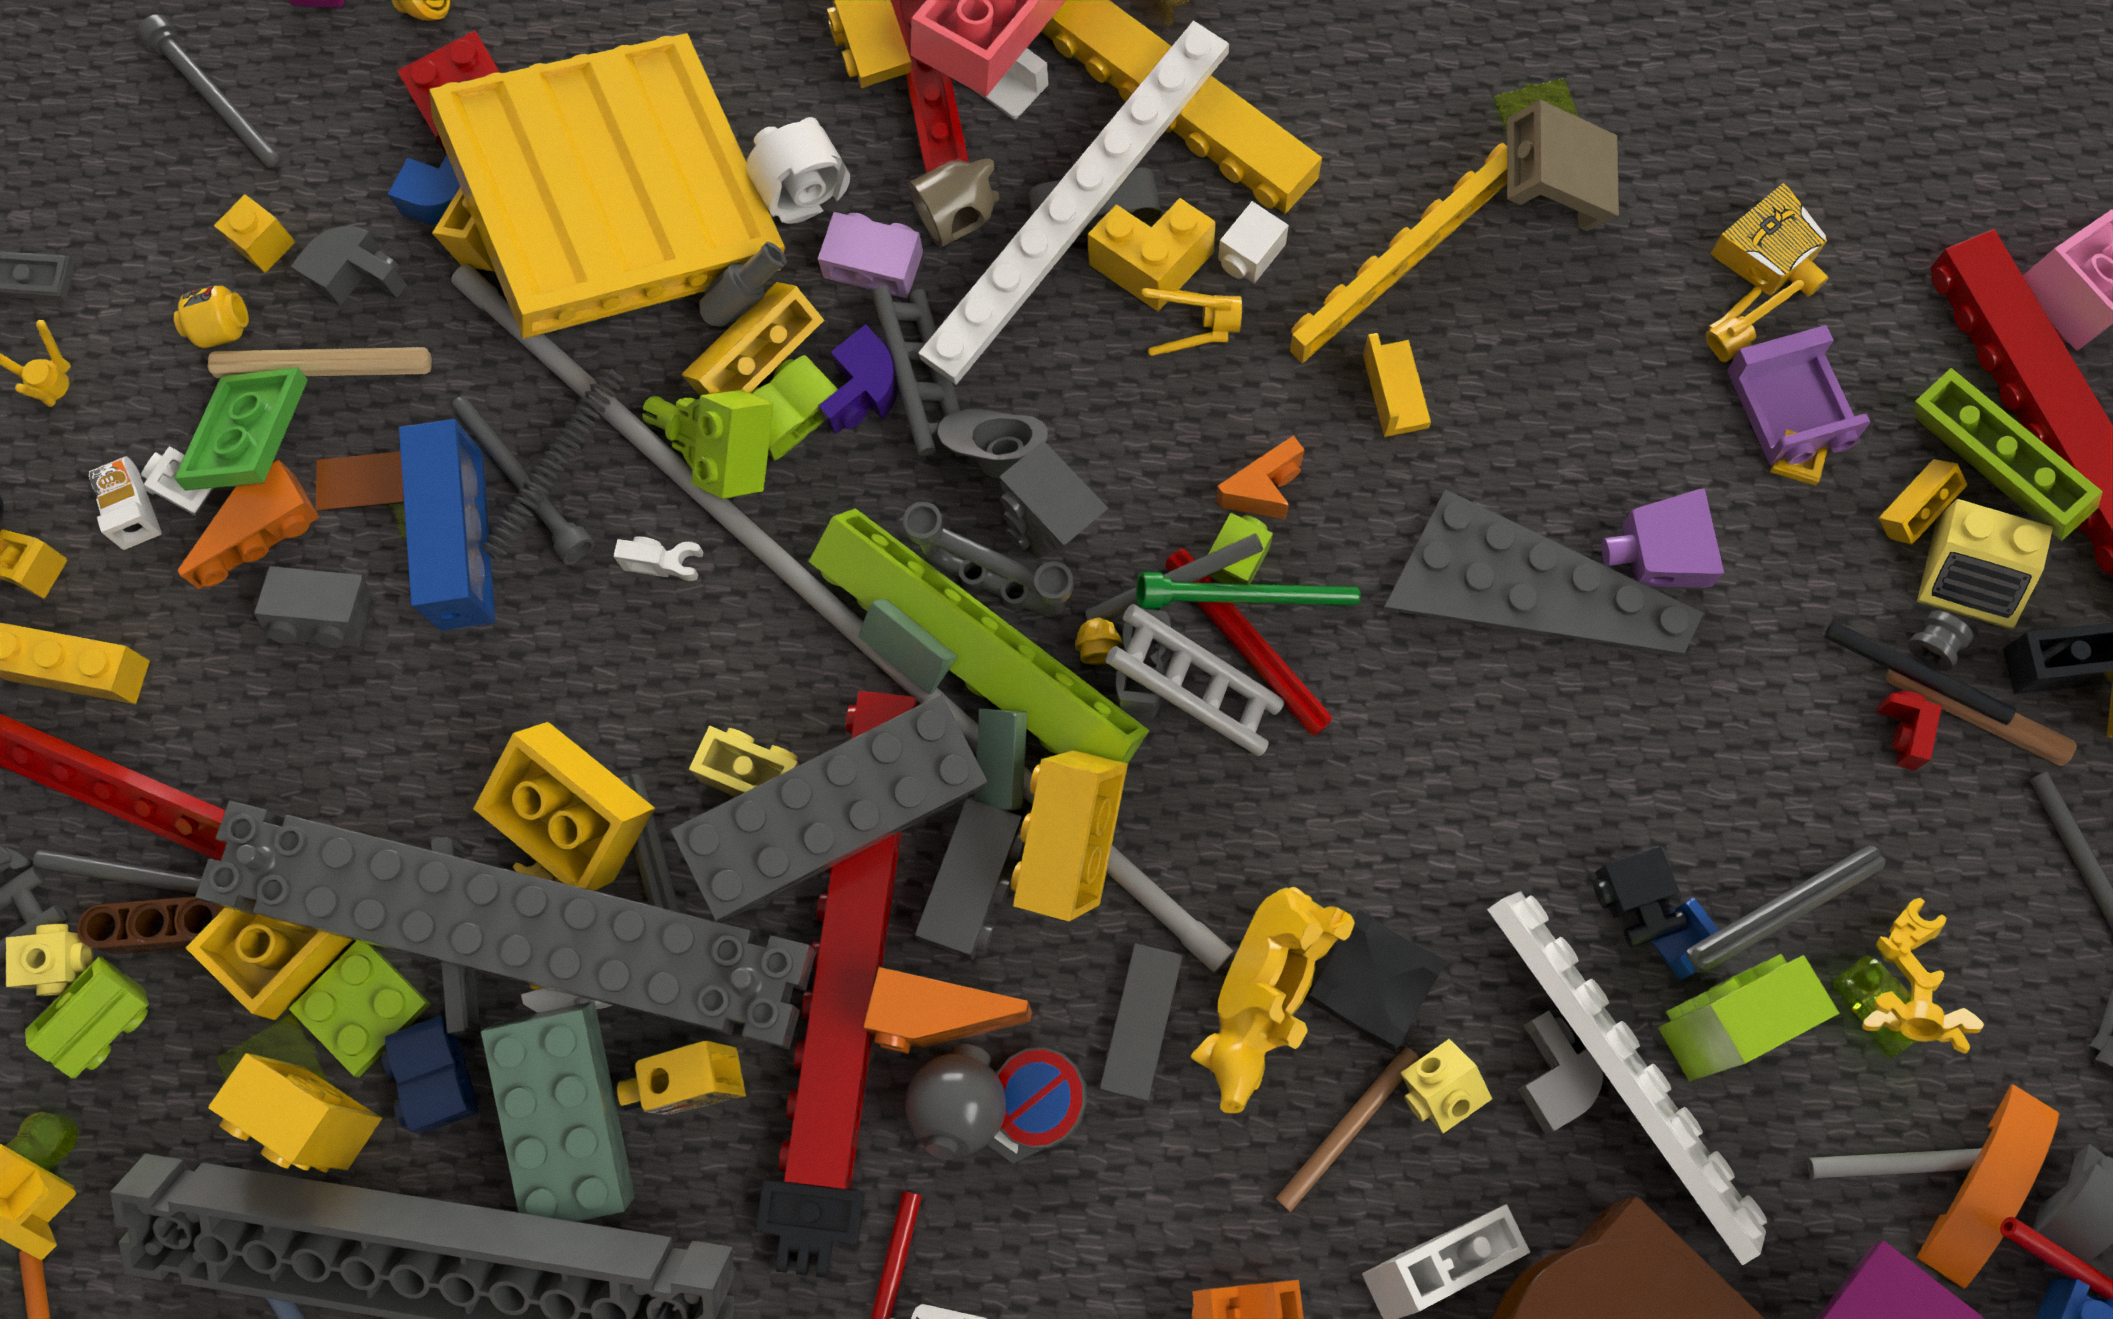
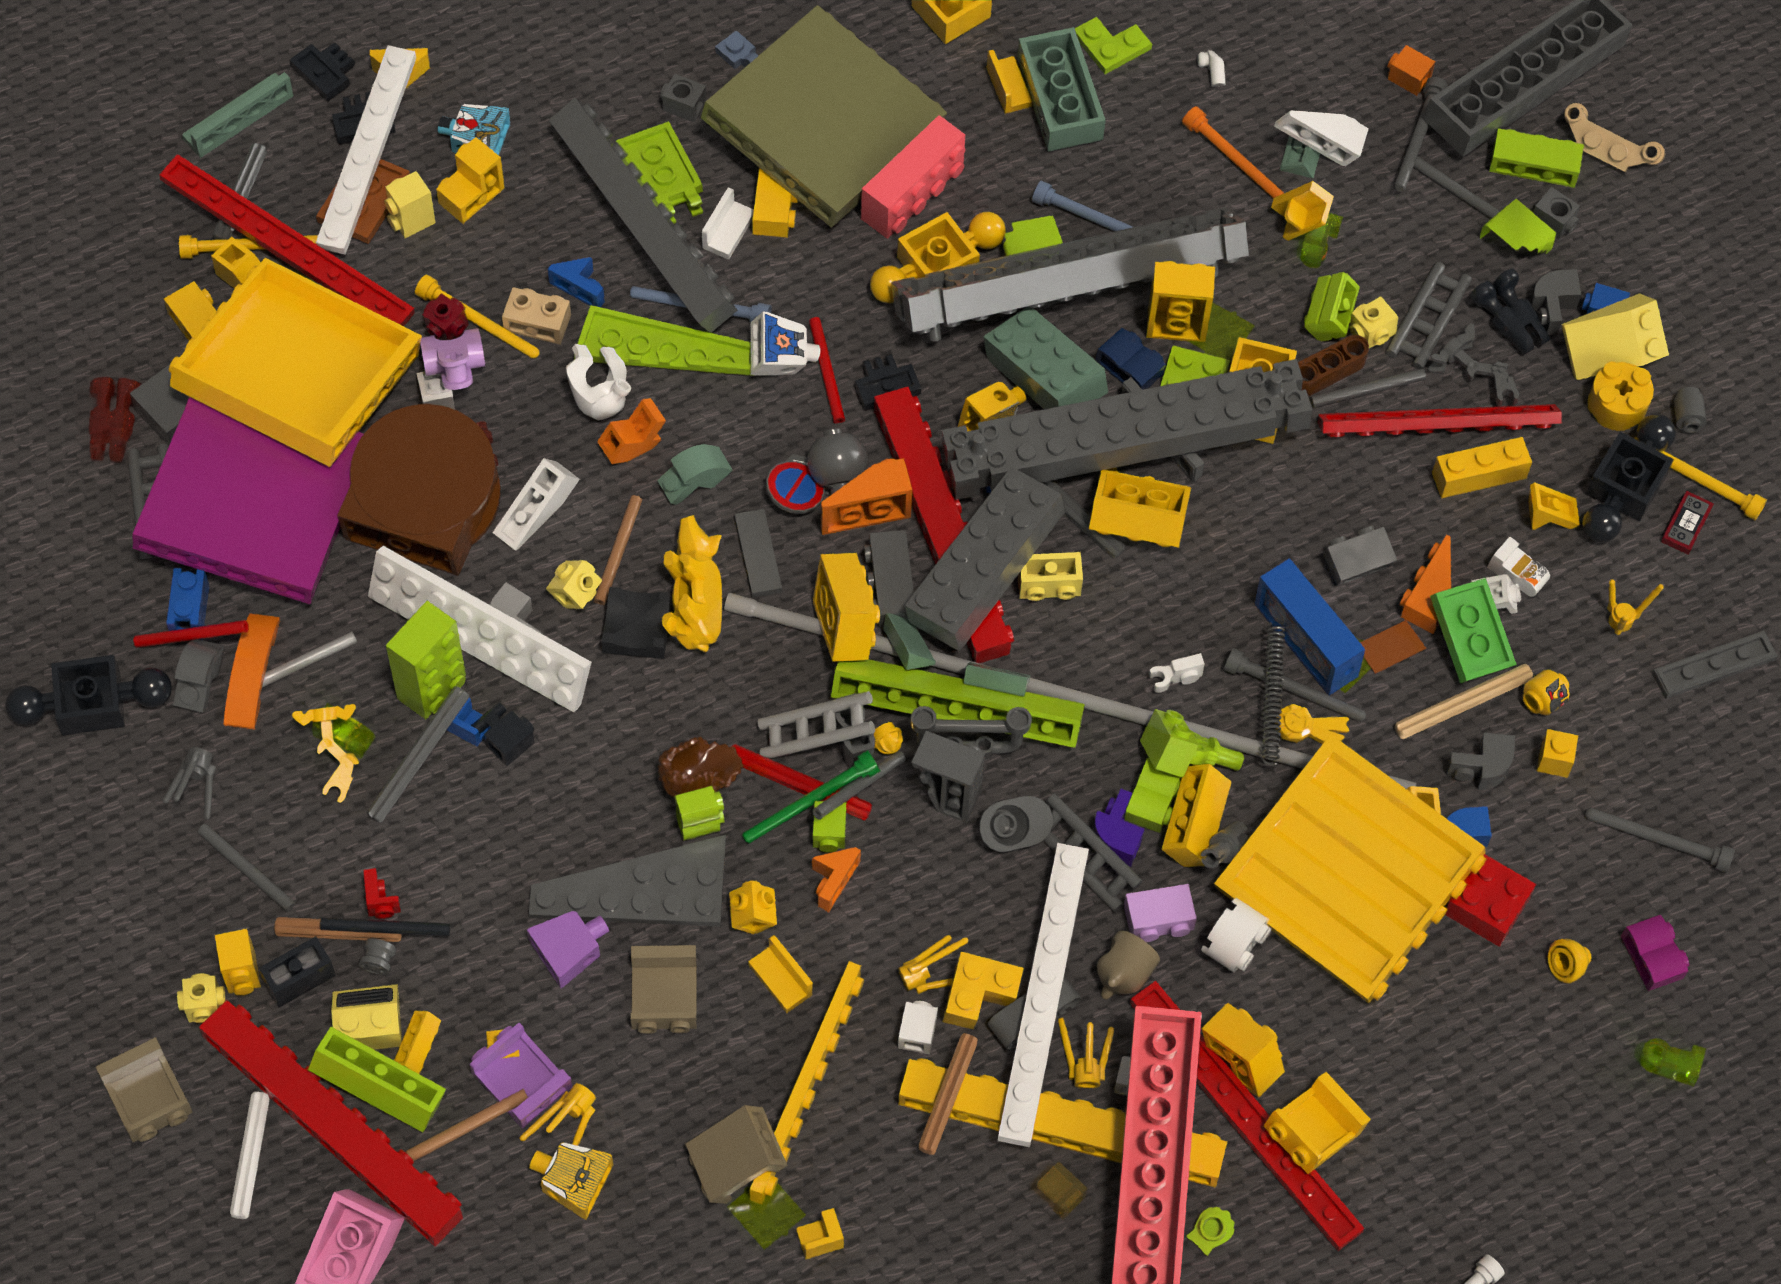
camera: 145 degrees right, 10 degrees down
(539, 418) = (1299, 725): none -> yellow piece
(1066, 112) = (1087, 1071): none -> yellow plant
(1178, 1195) = (694, 467): none -> sand green brick
(1262, 124) = (948, 1094): none -> medium nougat axle
(1387, 698) = (698, 765): none -> reddish brown piece
(1396, 479) = (753, 907): none -> yellow brick
(1416, 633) = (699, 812): none -> lime brick
(1491, 55) = (821, 1235): none -> yellow panel
(1560, 430) = (664, 988): none -> dark tan panel
(1888, 365) = (467, 1125): none -> medium nougat bar

